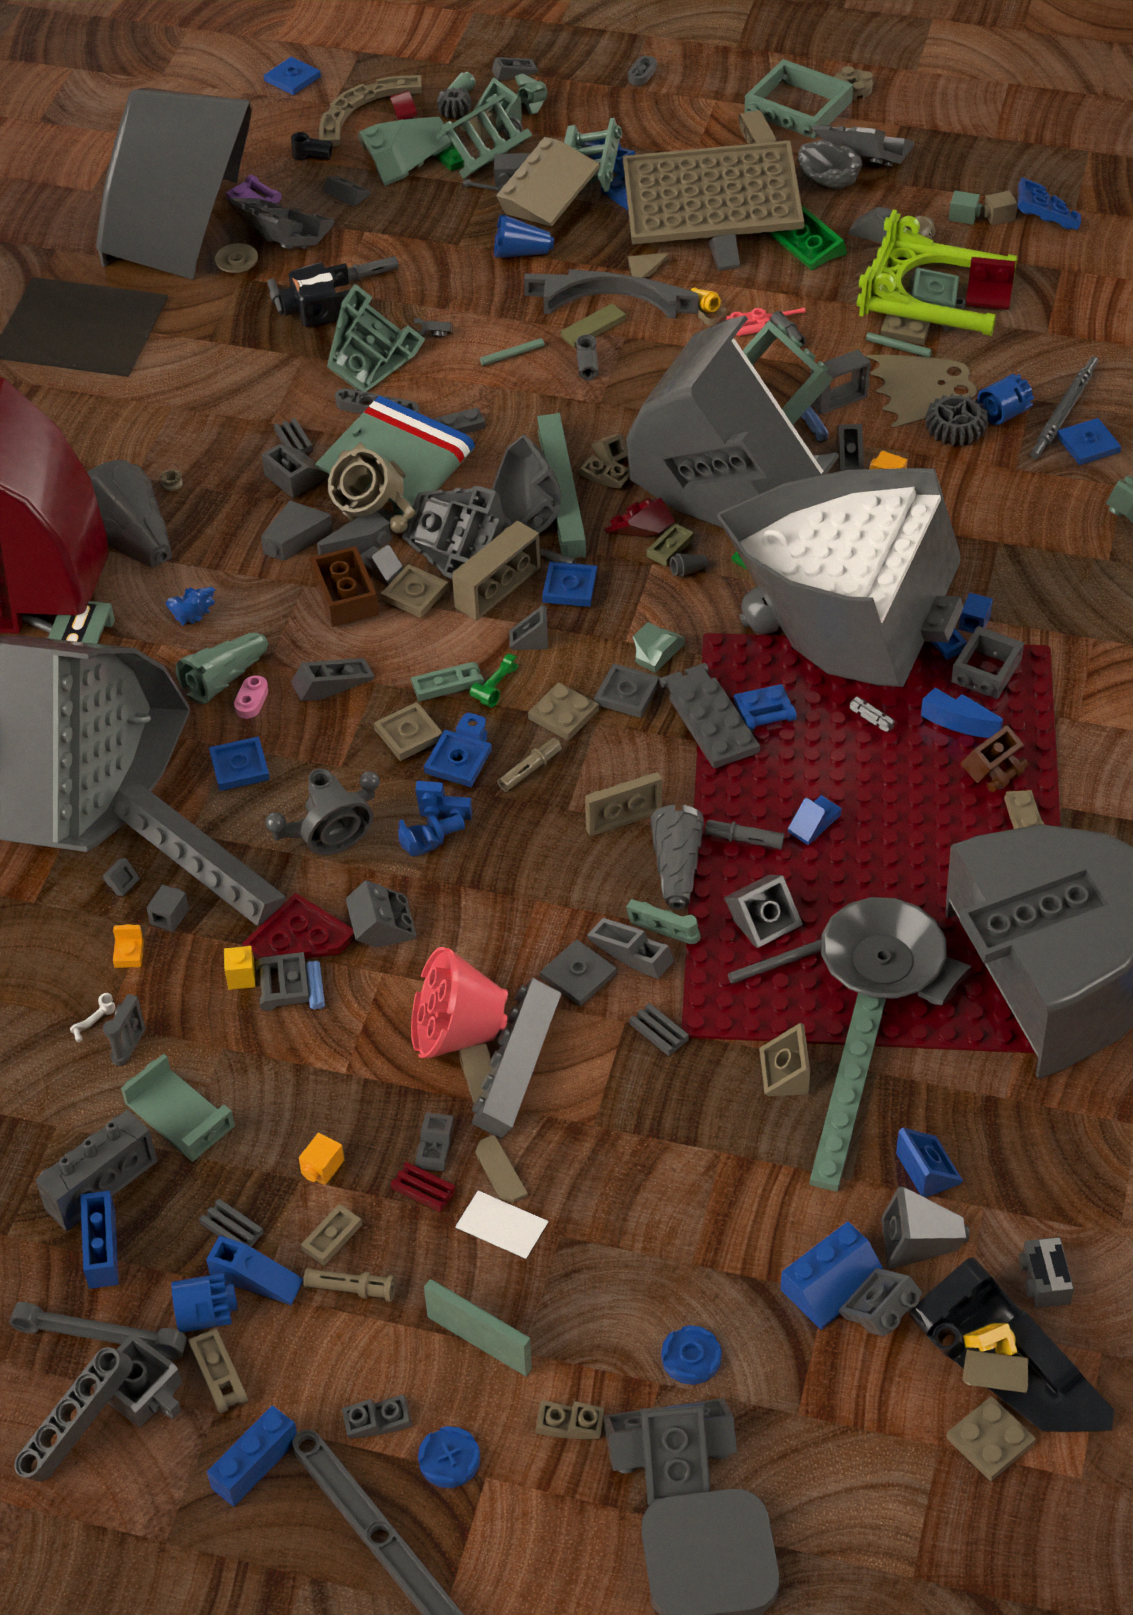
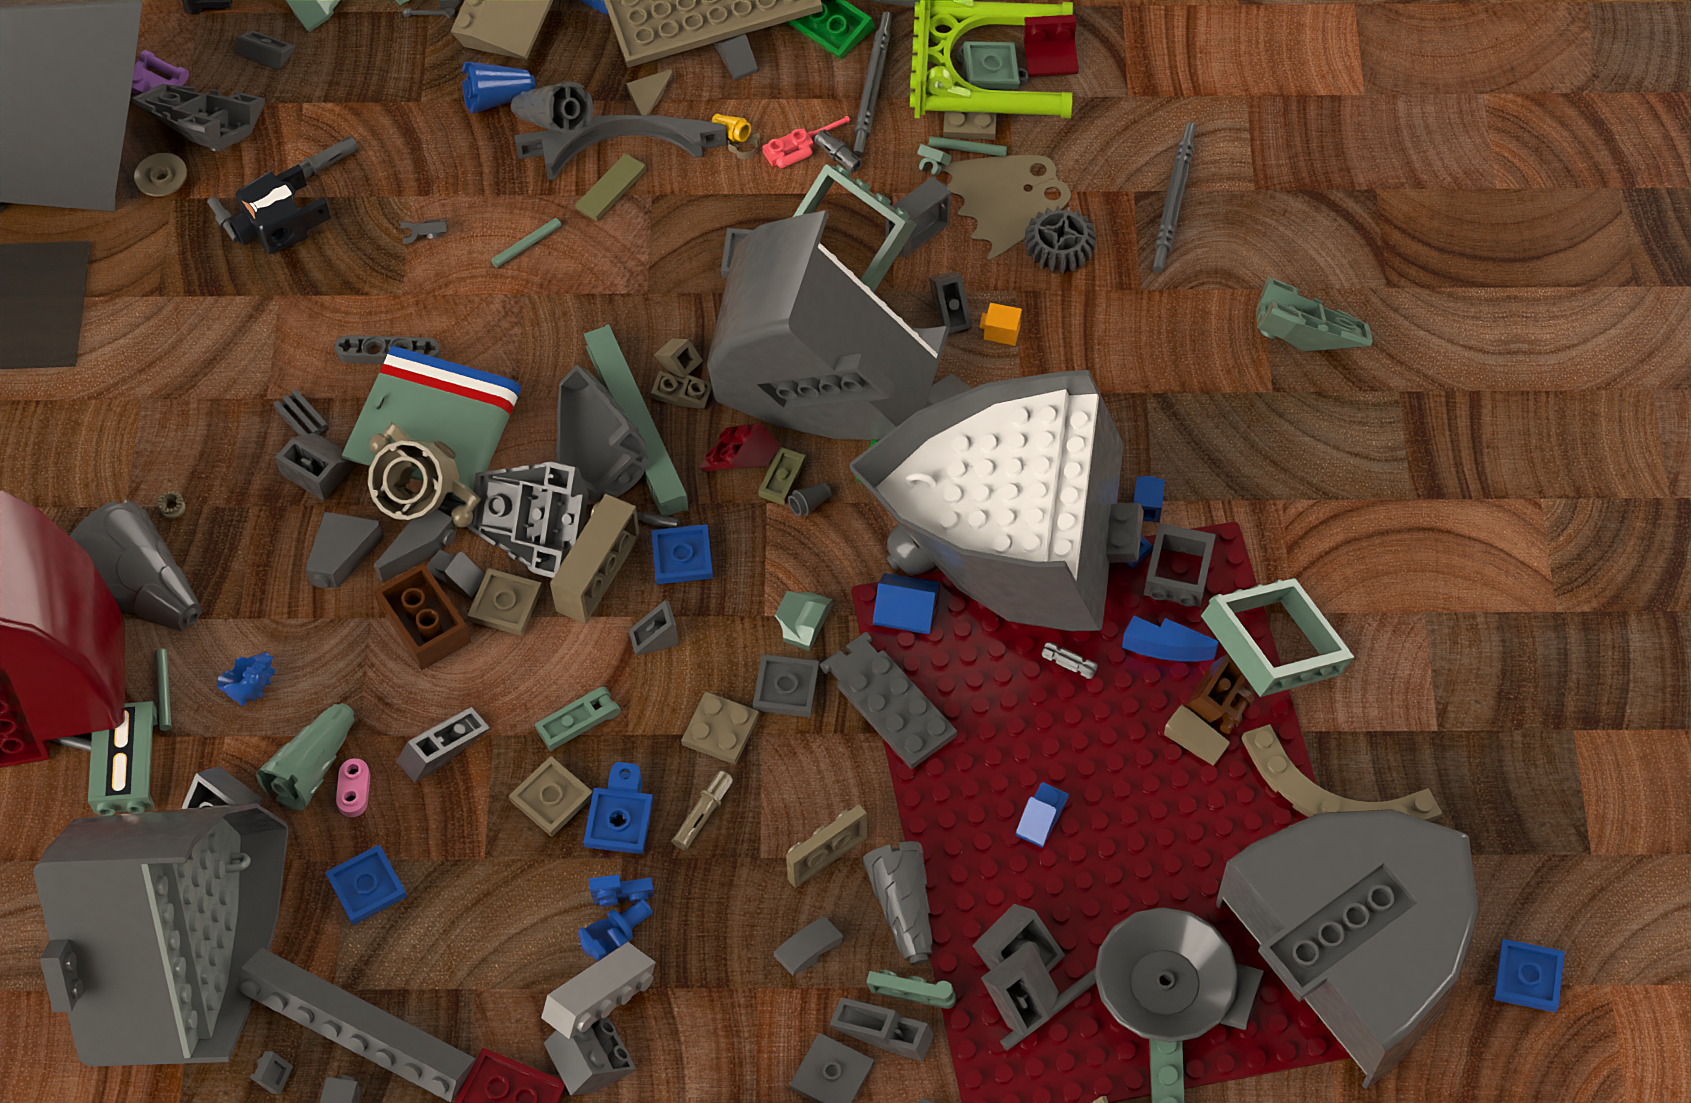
camera: 15 degrees left, 10 degrees up
(123, 602) = (163, 689): none -> sand green bar
(334, 816) = (498, 943): dark grey piece -> none
(368, 344) = (357, 271): sand green wedge -> none
(400, 863) = (598, 990): none -> light grey brick
(464, 421) = (493, 353): dark grey plate -> none
(487, 692) = (625, 723): green brick -> none
(563, 254) = (555, 107): none -> dark grey cone
(582, 876) = (805, 946): none -> dark grey slope
(587, 357) = (617, 236): dark grey piece -> none
(744, 649) = (905, 603): none -> blue slope
(744, 834) = (971, 852): dark grey axle -> none
(756, 934) = (1022, 990): none -> dark grey slope
(764, 706) = (944, 669): blue plate -> none
(815, 424) = (904, 278): medium blue axle -> none
(831, 289) = (872, 84): none -> dark grey axle
(867, 344) = (933, 156): none -> sand green tile
(964, 787) = (1196, 735): none -> dark tan slope
(1006, 398) = (1109, 203): blue gear -> none
(1088, 441) = (1211, 237): blue plate -> none
(1095, 756) = (1249, 657): none -> sand green window

